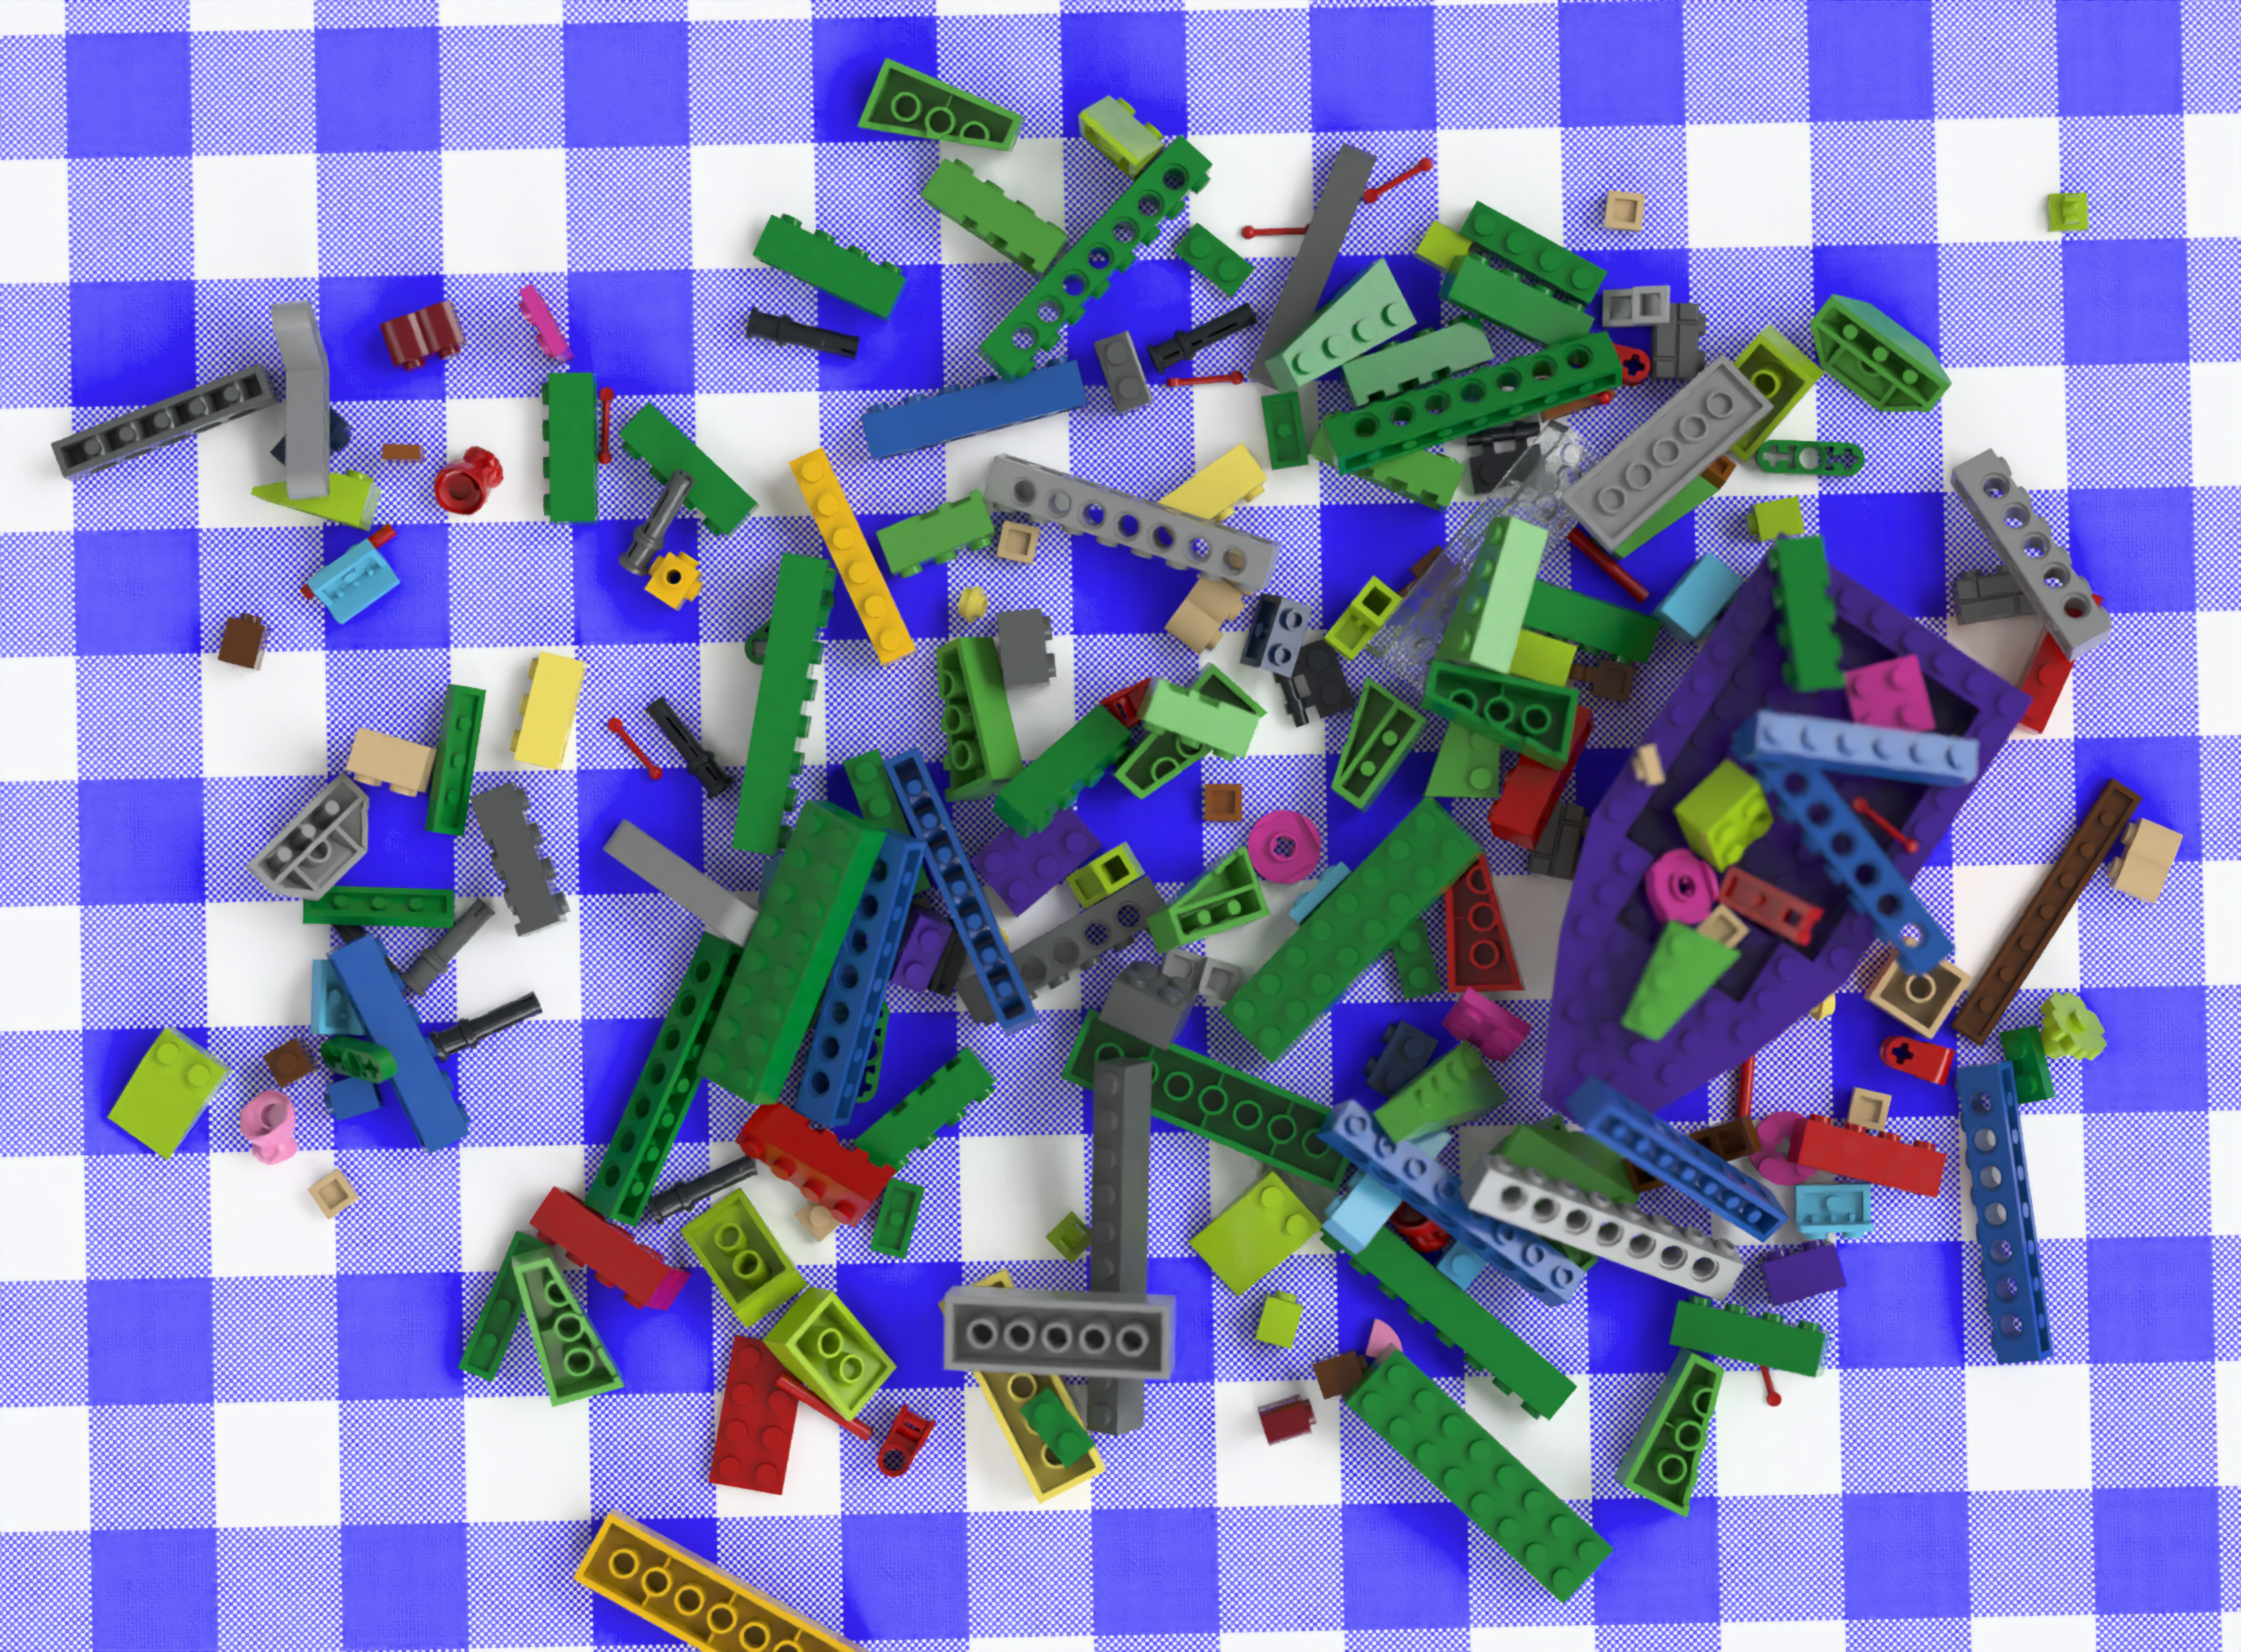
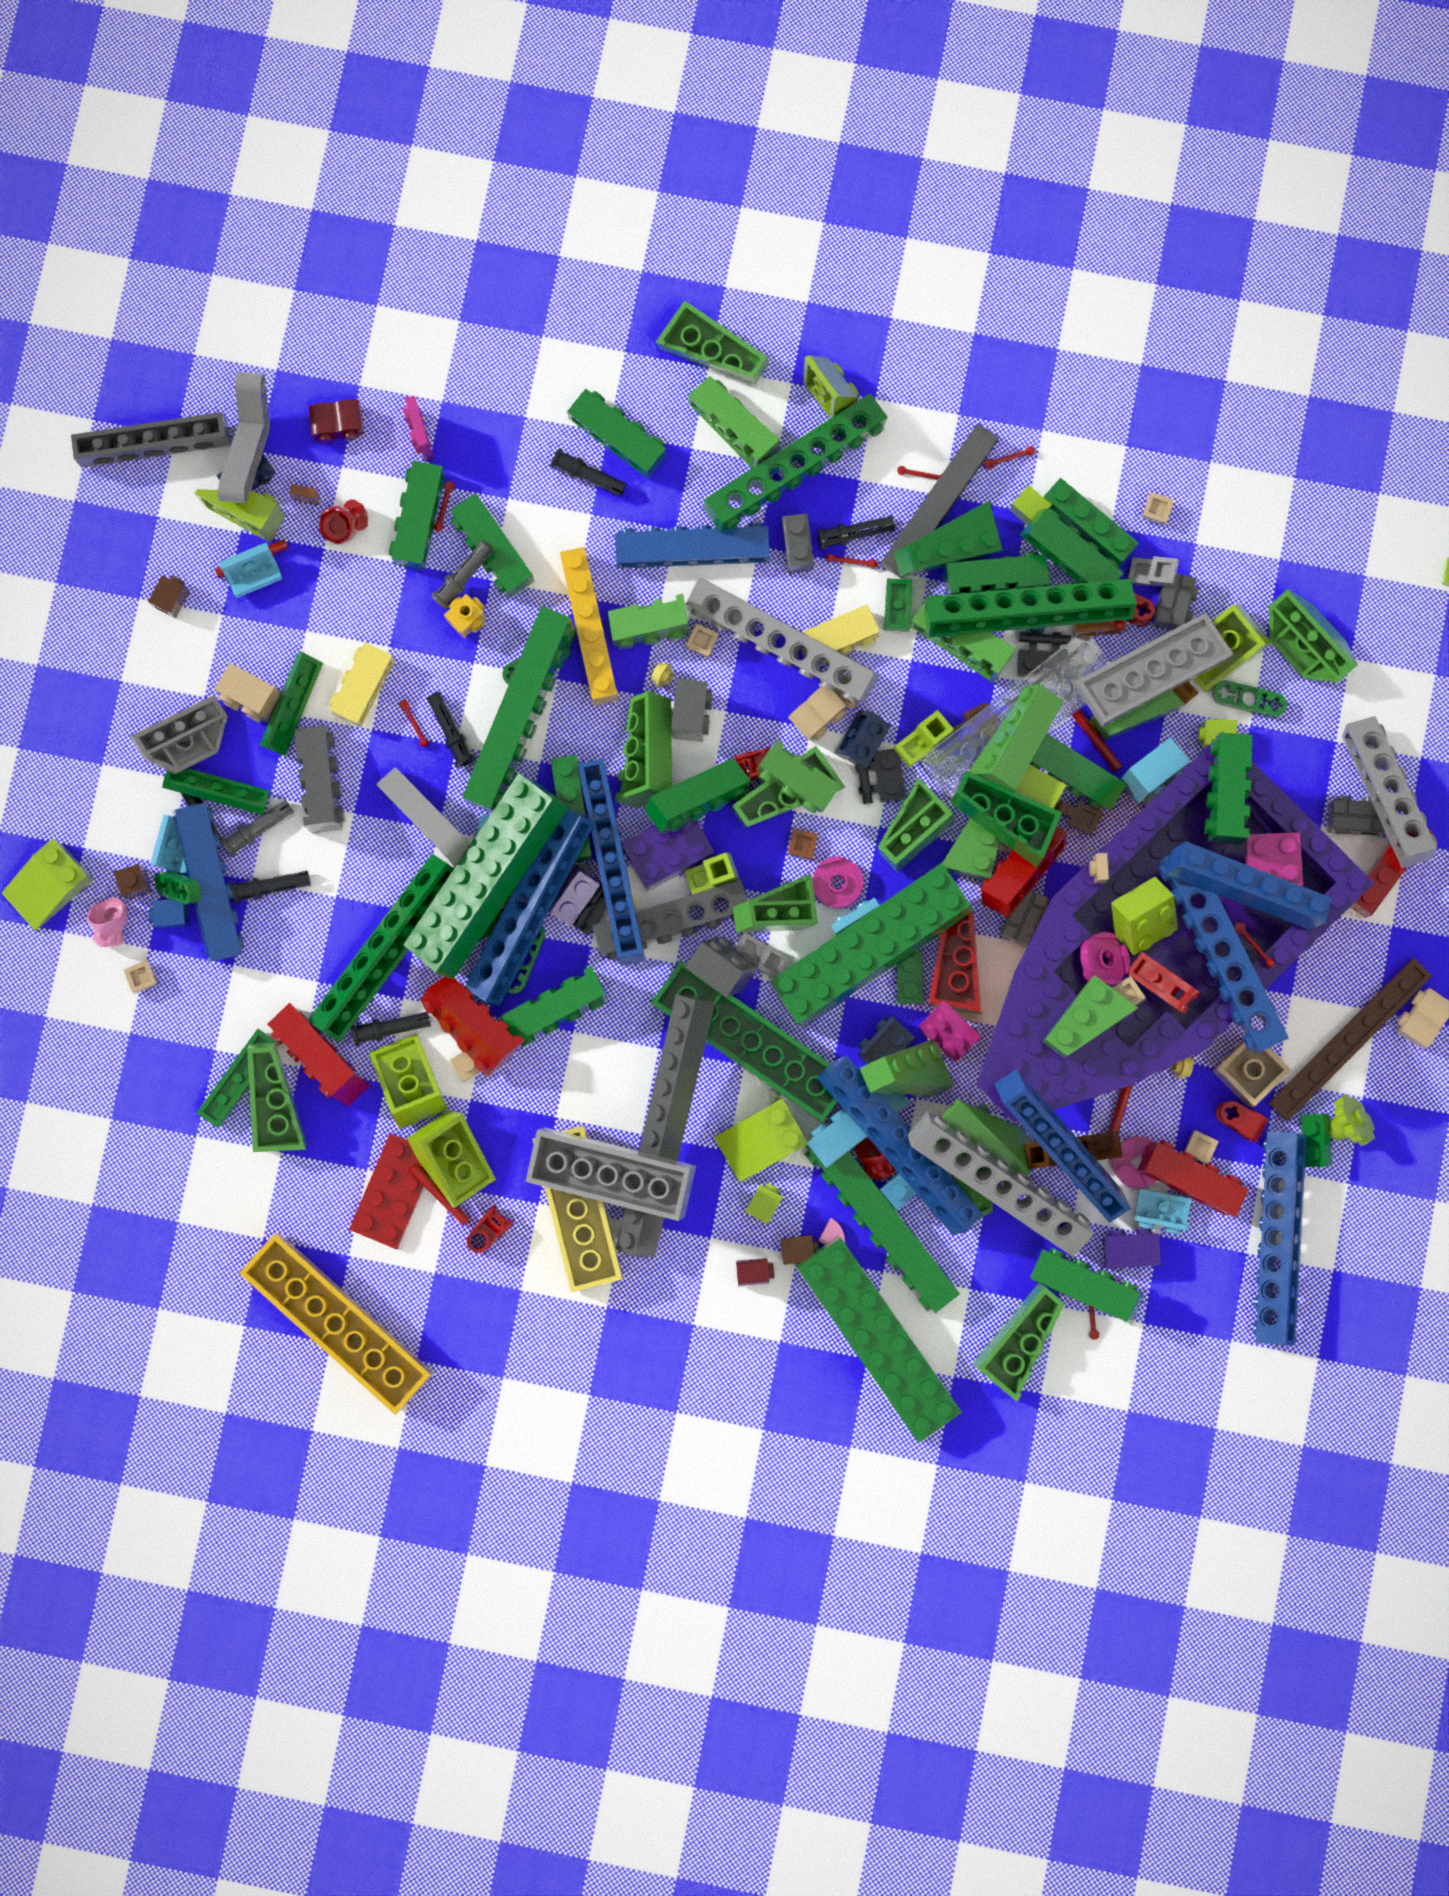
camera: 15 degrees right, 5 degrees down
(897, 1218) = (518, 1076): green plate -> none
(1057, 1427) = (595, 1241): green plate -> none
(1070, 1237) = (633, 1116): lime tile -> none
(1214, 260) = (875, 483): green plate -> none

